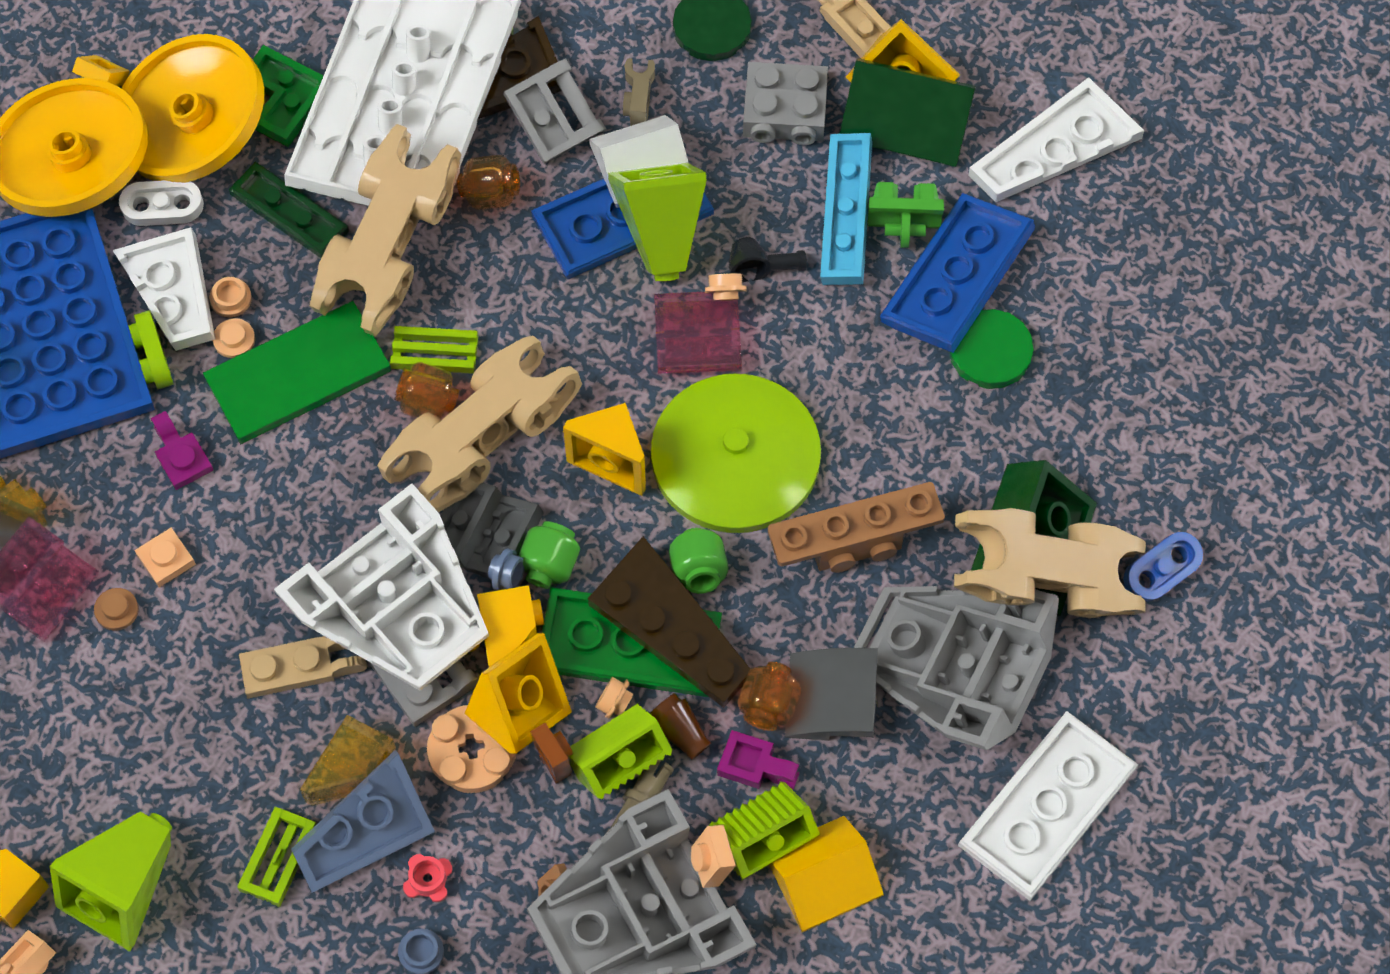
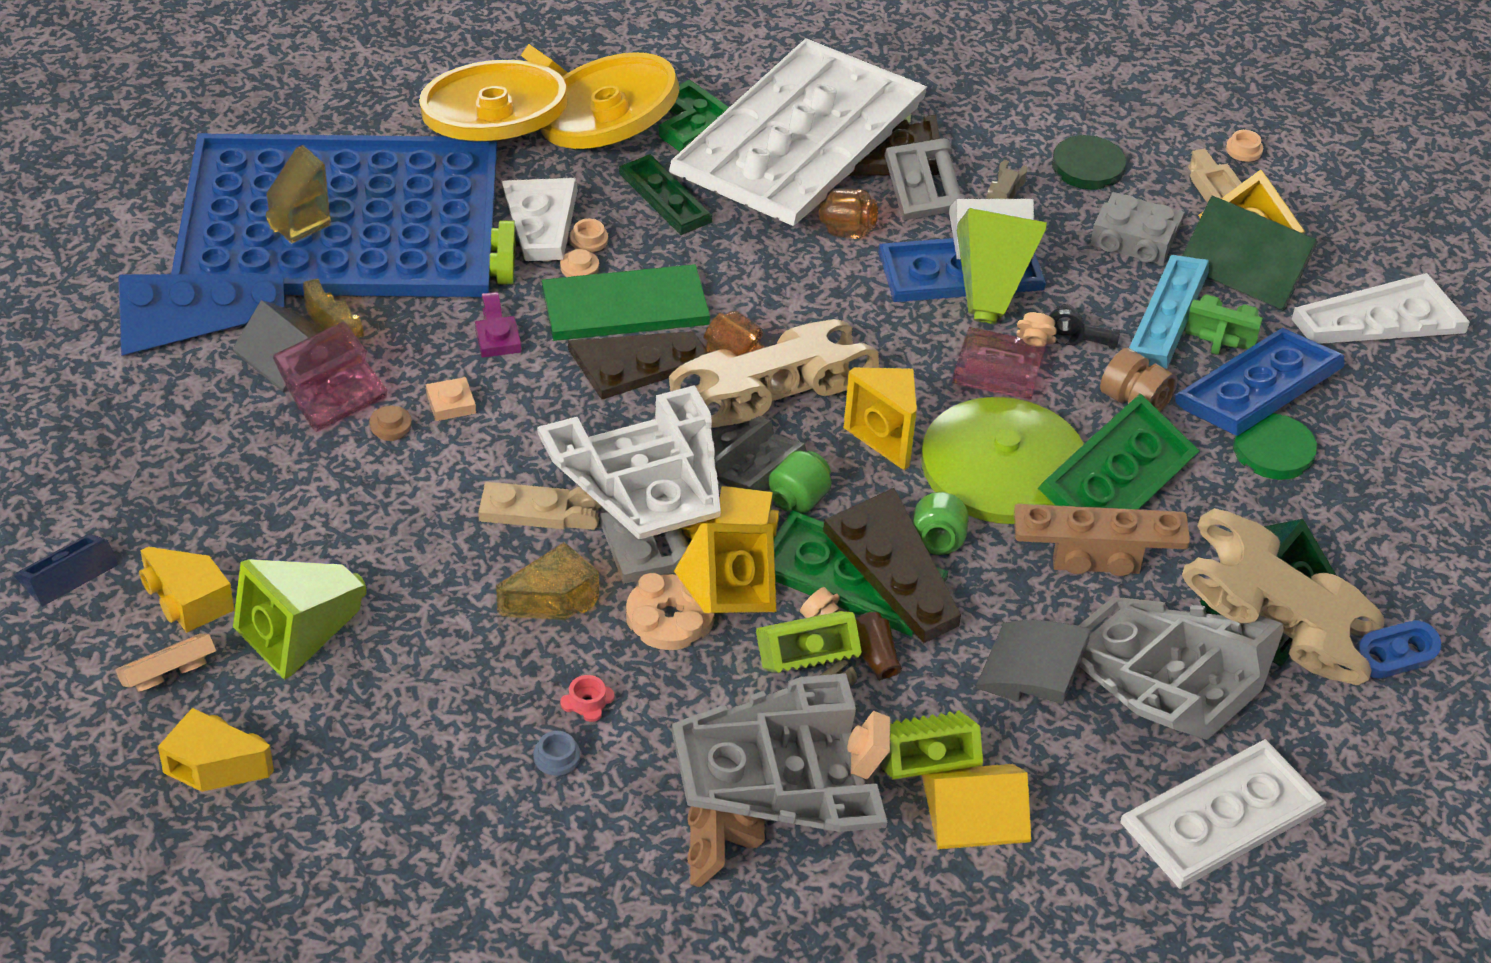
camera: 15 degrees right, 20 degrees down
(162, 202) = (557, 159): white plate -> none
(262, 892) = (441, 671): lime tile -> none
(335, 445) = (633, 361): none -> dark brown wing
(364, 827) = (546, 636): sand blue wing -> none
(374, 255) = (729, 227): tan piece -> none
(438, 335) = (770, 317): lime tile -> none
(506, 570) = (756, 475): sand blue plate -> none
(553, 751) = (746, 620): dark orange plate -> none
(751, 760) = (937, 691): magenta plate -> none
(769, 696) = (971, 642): clear orange head -> none
(842, 319) = (1130, 375): none -> medium nougat wheel
(852, 432) = (1122, 461): none -> green plate

